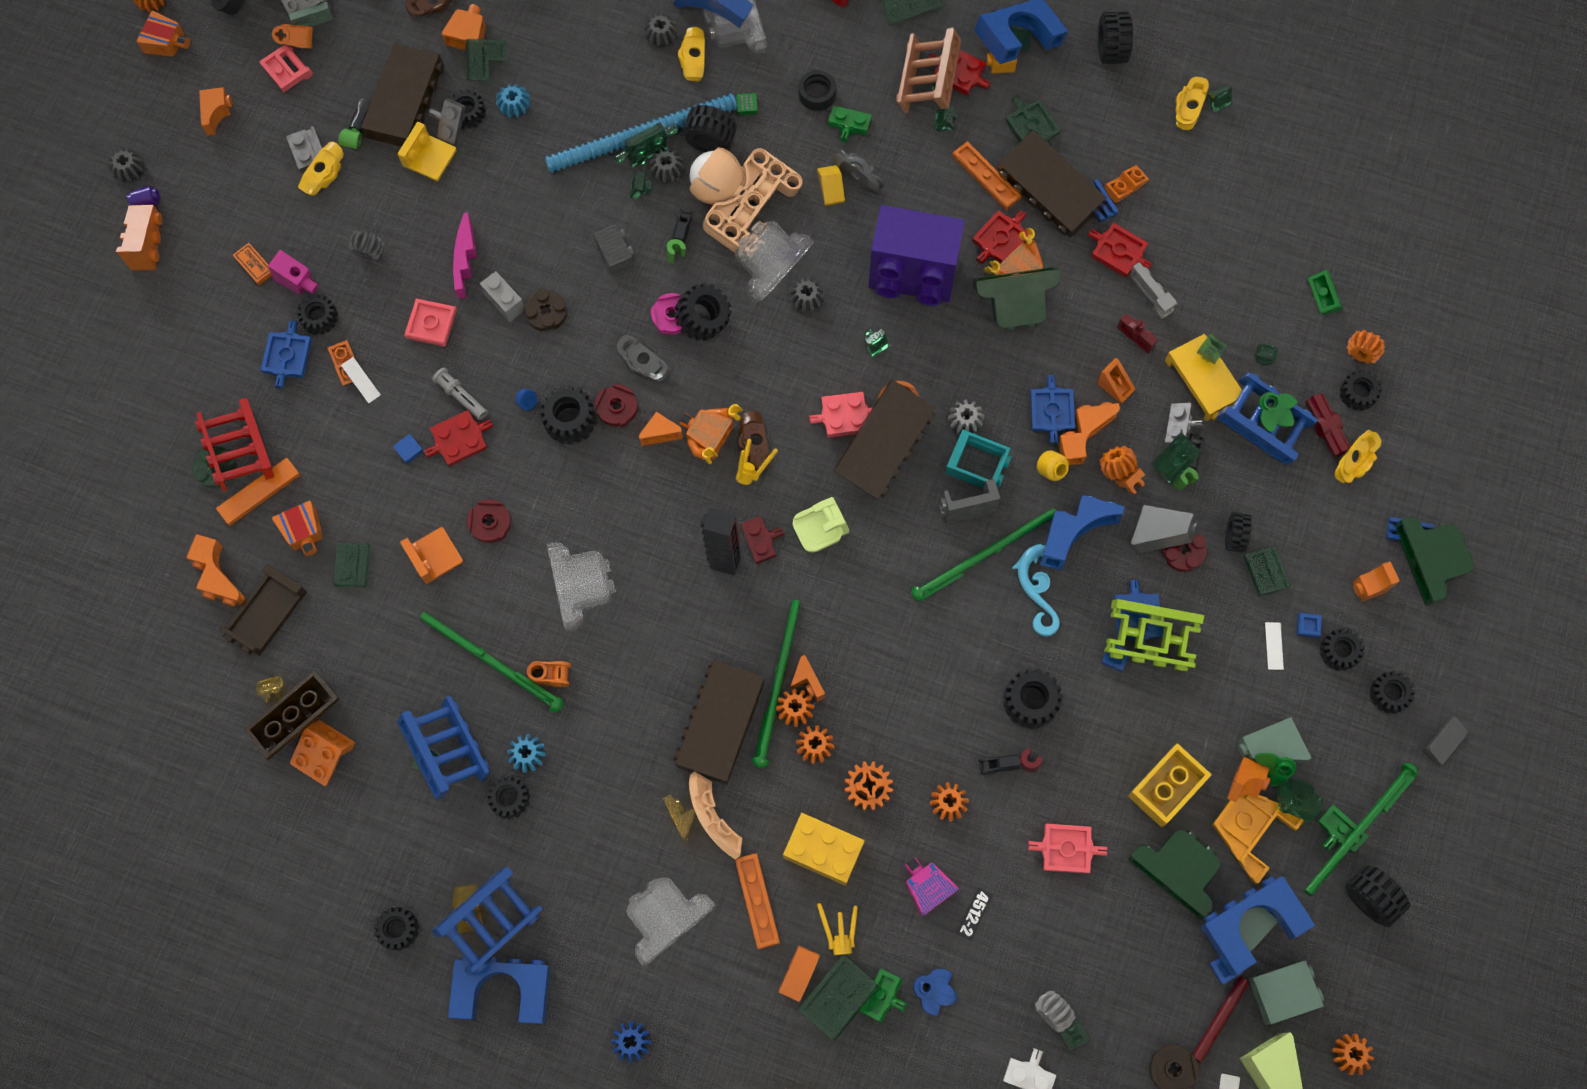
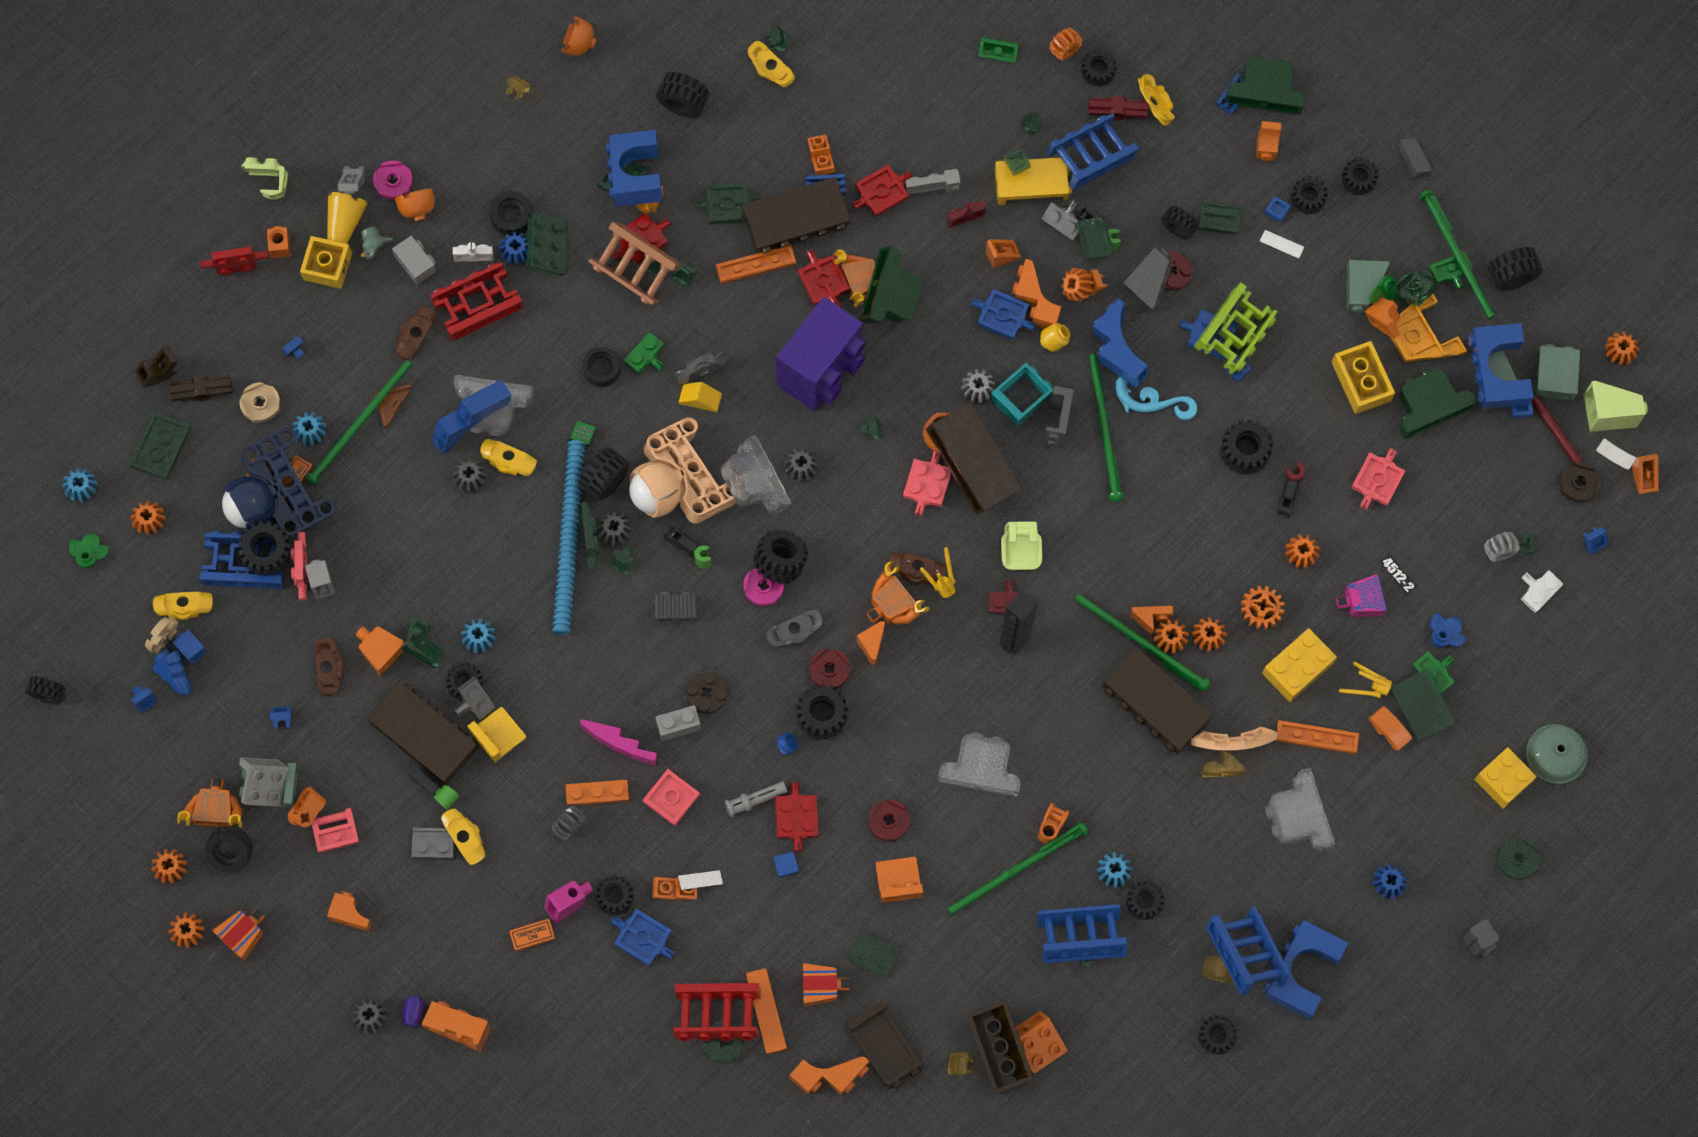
camera: 70 degrees left, 0 degrees up
(410, 260) = (597, 792): none -> orange plate
(1279, 412) = (1094, 140): green plate -> none

